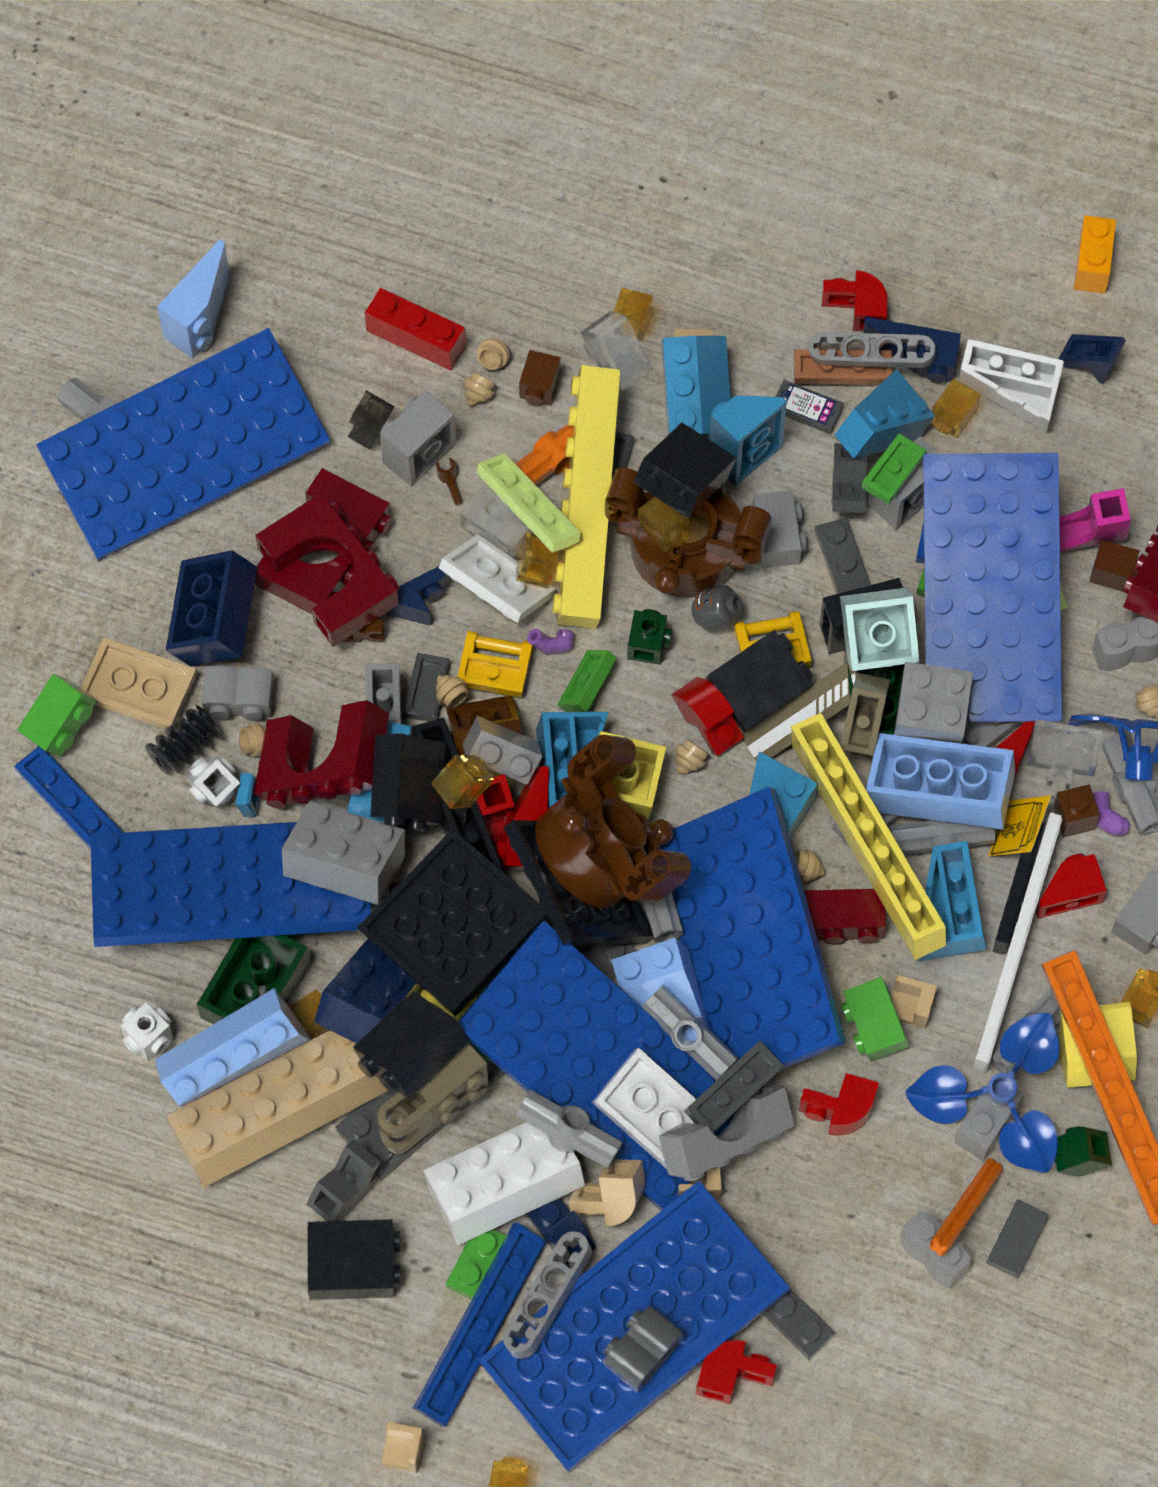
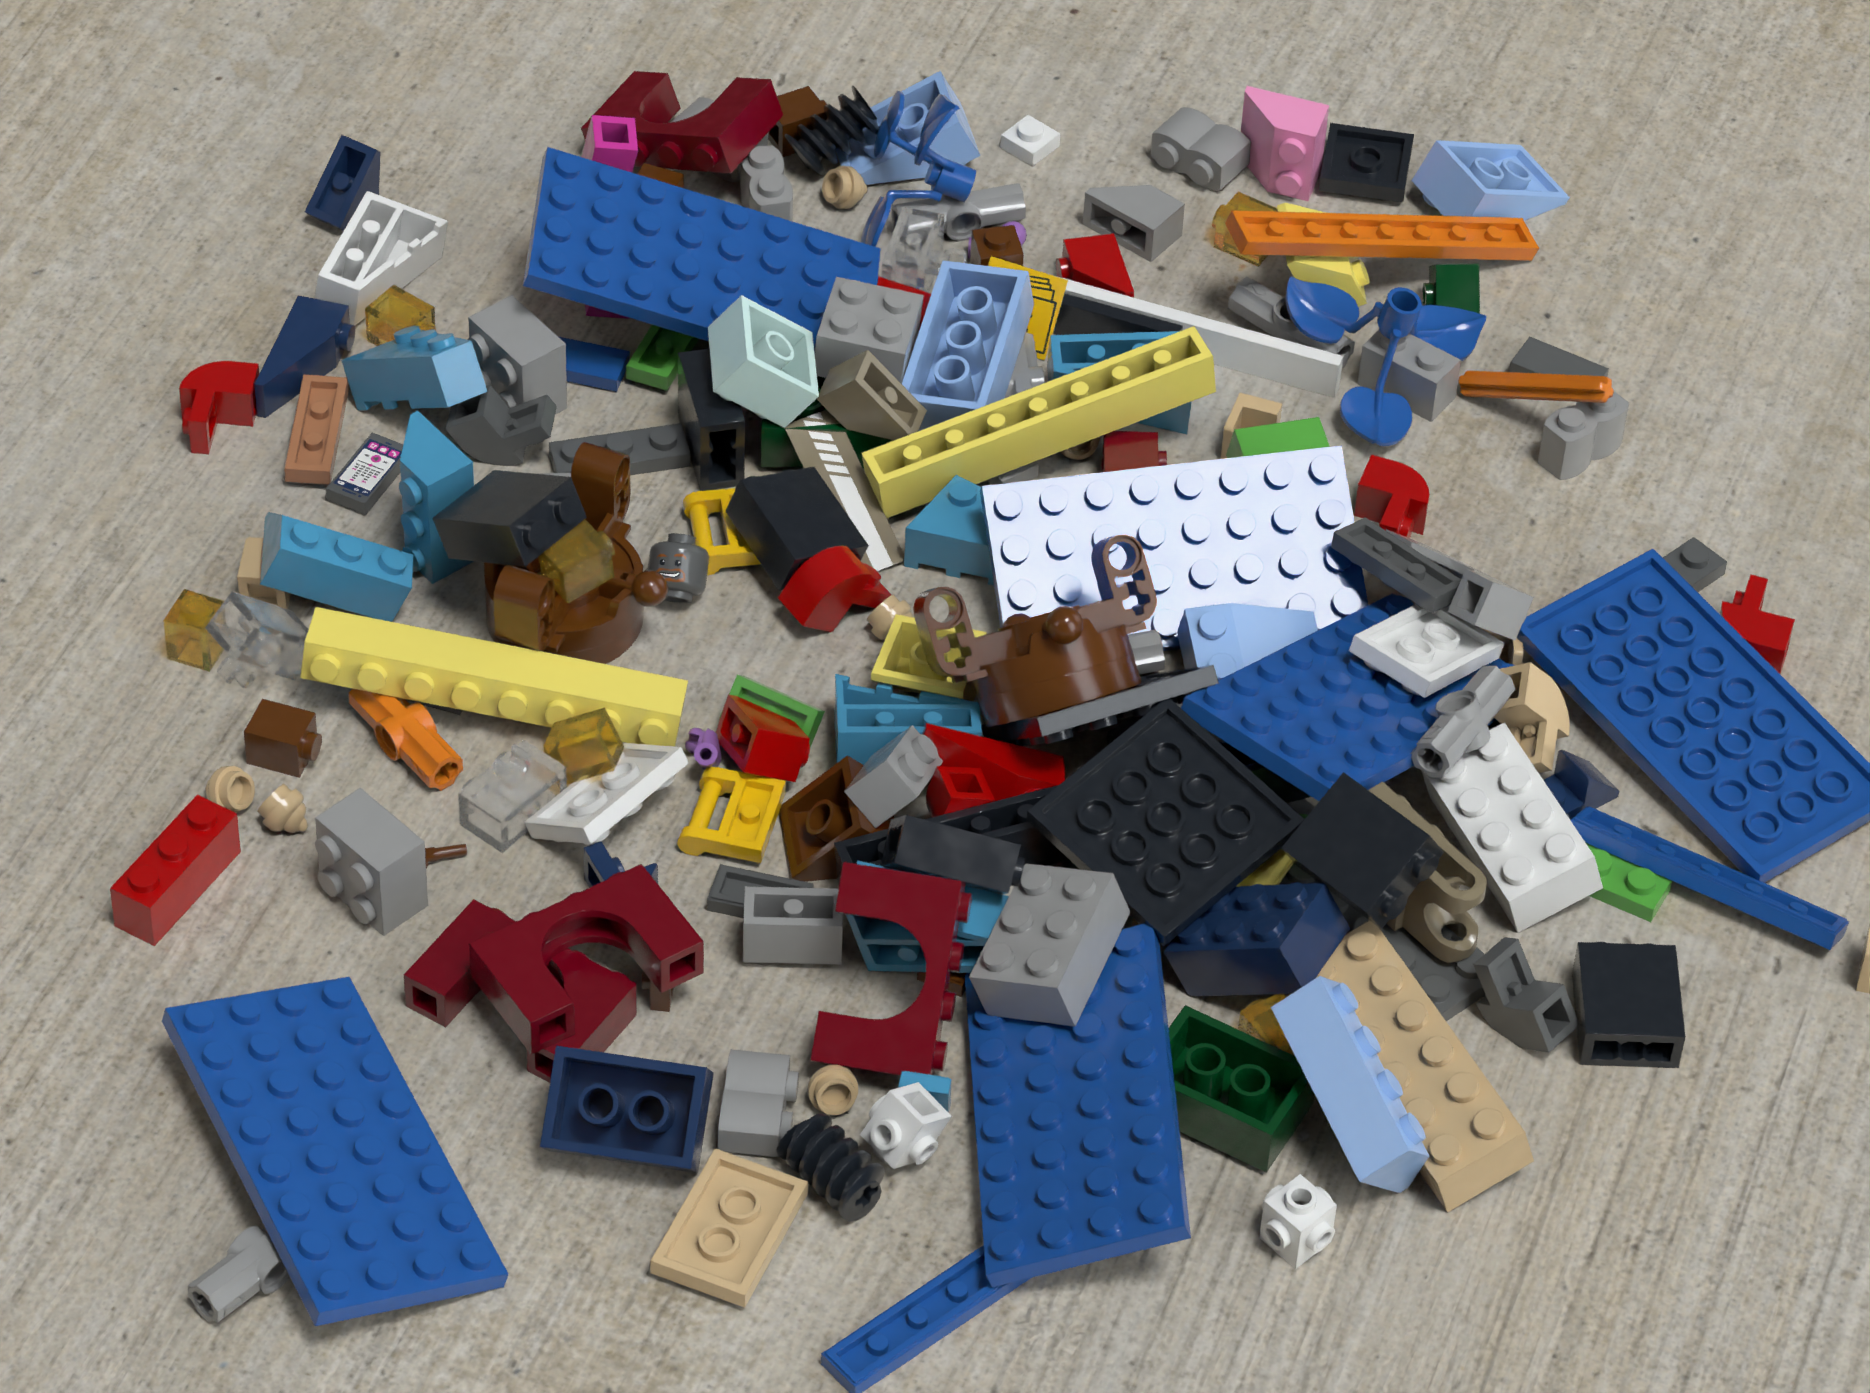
camera: 90 degrees left, 20 degrees down
(57, 715) = (786, 1308): bright green brick -> none
(193, 307) = (88, 1112): light blue slope -> none
(369, 419) = (328, 922): clear smoke brick -> none
(451, 691) = (779, 854): tan plate -> none
(462, 781) = (956, 791): clear yellow brick -> none
(528, 502) = (512, 724): yellowish green plate -> none
(543, 1293) = (1679, 780): light grey beam -> none
(553, 674) = (762, 740): none -> red slope
(642, 1348) = (1748, 686): dark grey brick -> none
(648, 636) = (709, 648): dark green brick -> none
(707, 1049) = (1314, 611): light grey piece -> none
(872, 344) = (308, 377): light grey beam -> none
(893, 469) = (523, 333): bright green plate -> none
(1094, 254) = (192, 174): light orange brick -> none

